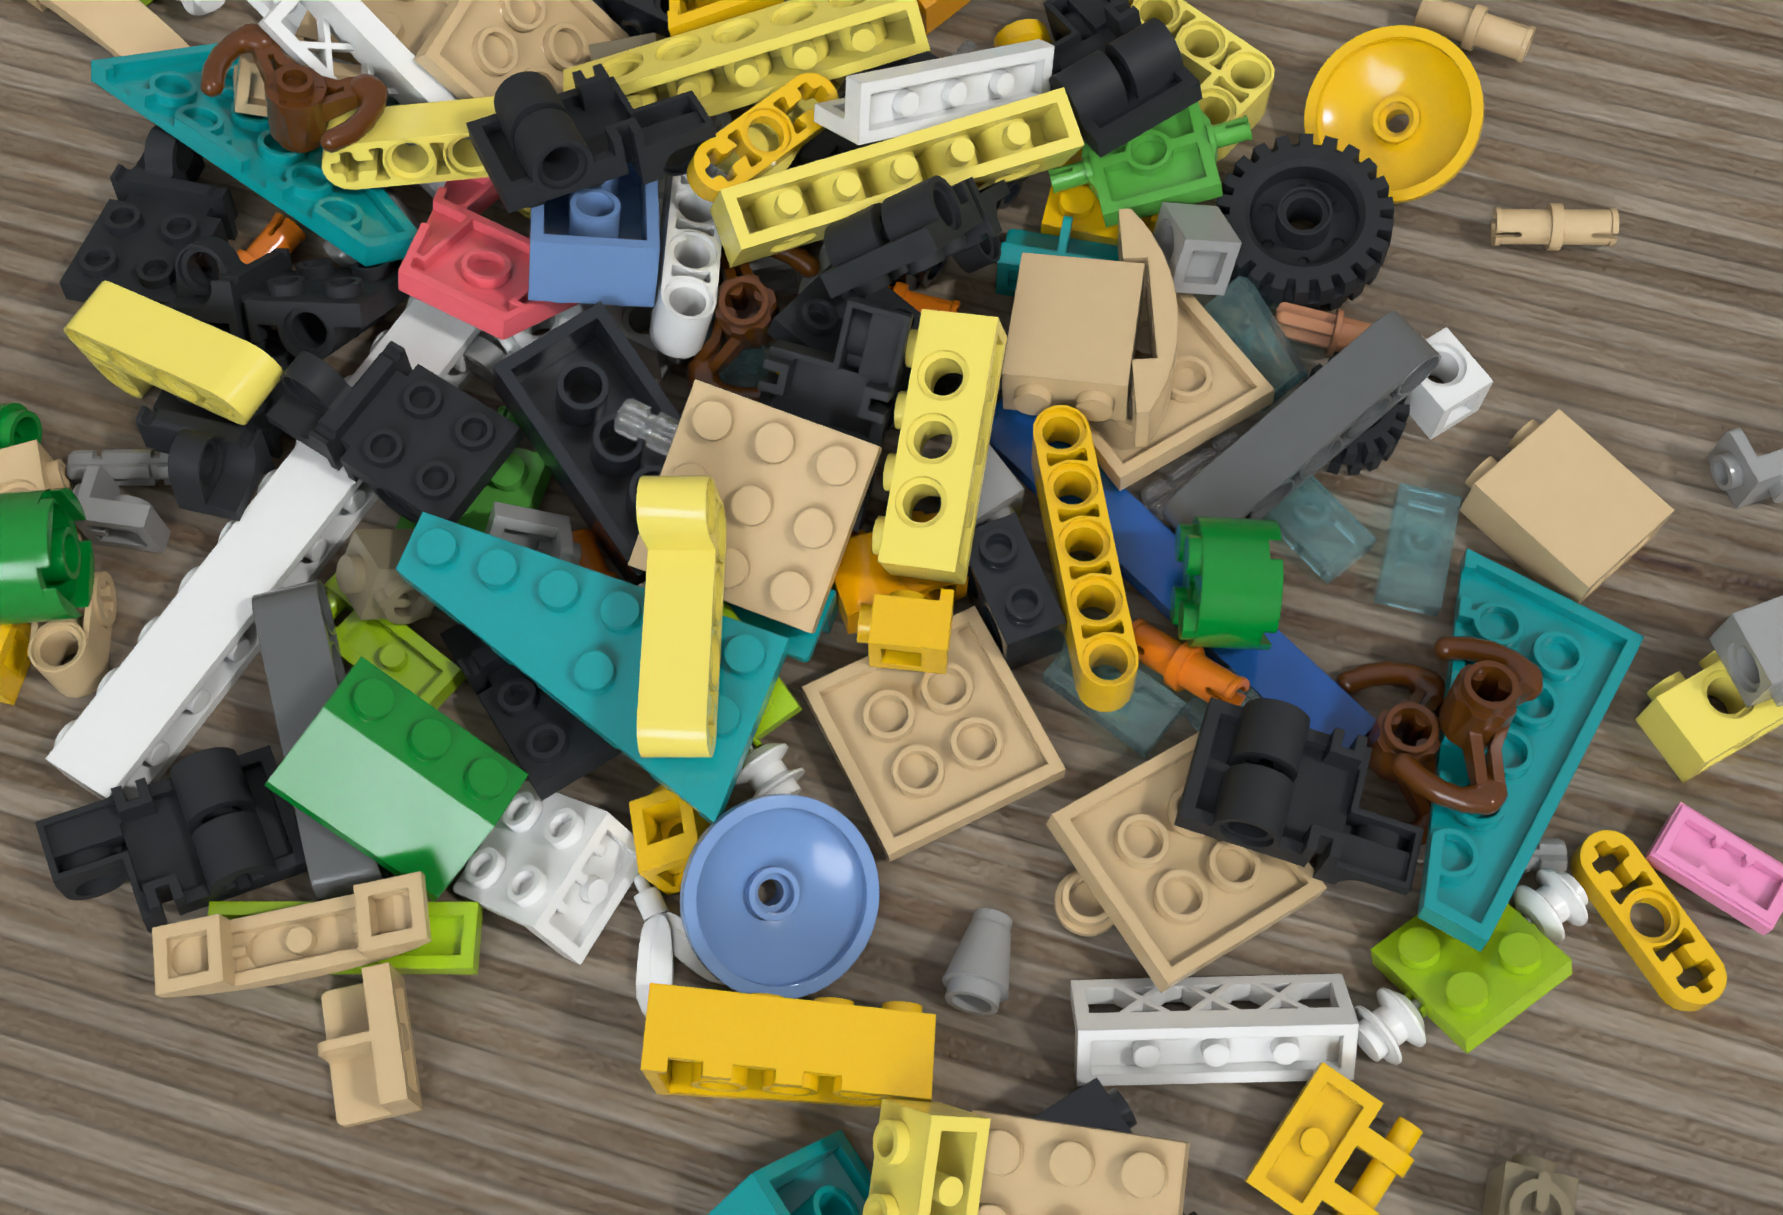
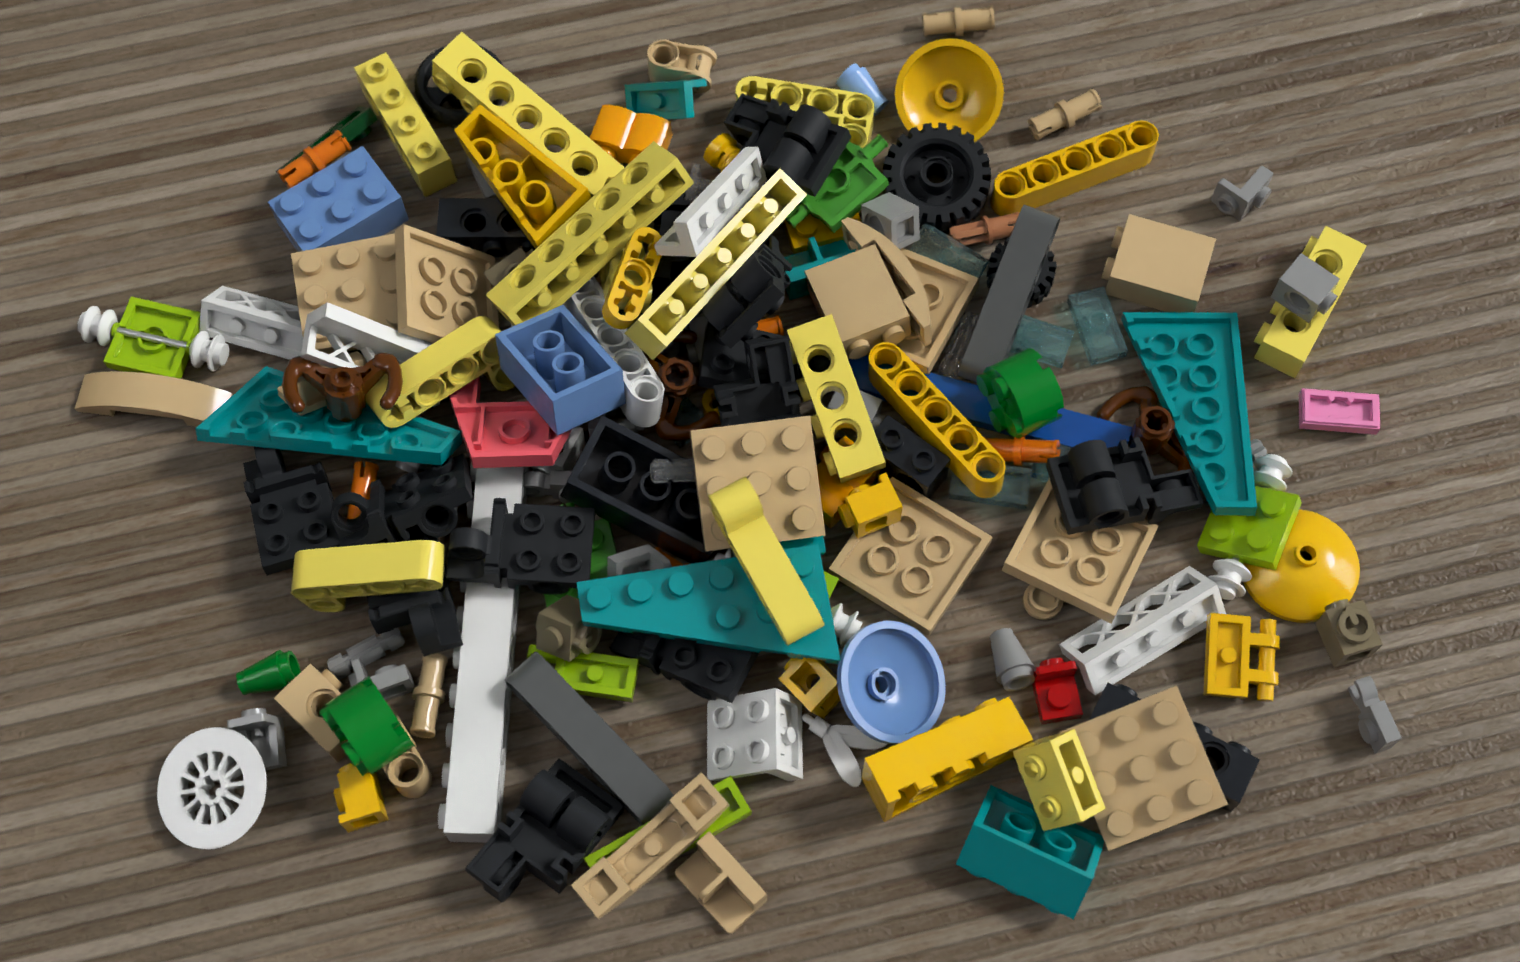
camera: 30 degrees left, 0 degrees up
(165, 567) = (428, 695): none -> tan pin
(397, 778) = (652, 731): slope -> none
(581, 137) = (537, 329): black plate -> none
(1021, 1047) = (1056, 691): none -> red bracket
(1278, 40) = (859, 80): none -> light blue cone
(1465, 386) = (1070, 227): white brick -> none
(1476, 720) = (1186, 398): reddish brown piece -> none
(1500, 1108) = (1303, 587): none -> yellow dish
(1546, 296) = (1086, 157): none -> yellow beam
(1677, 924) = (1333, 450): yellow beam -> none

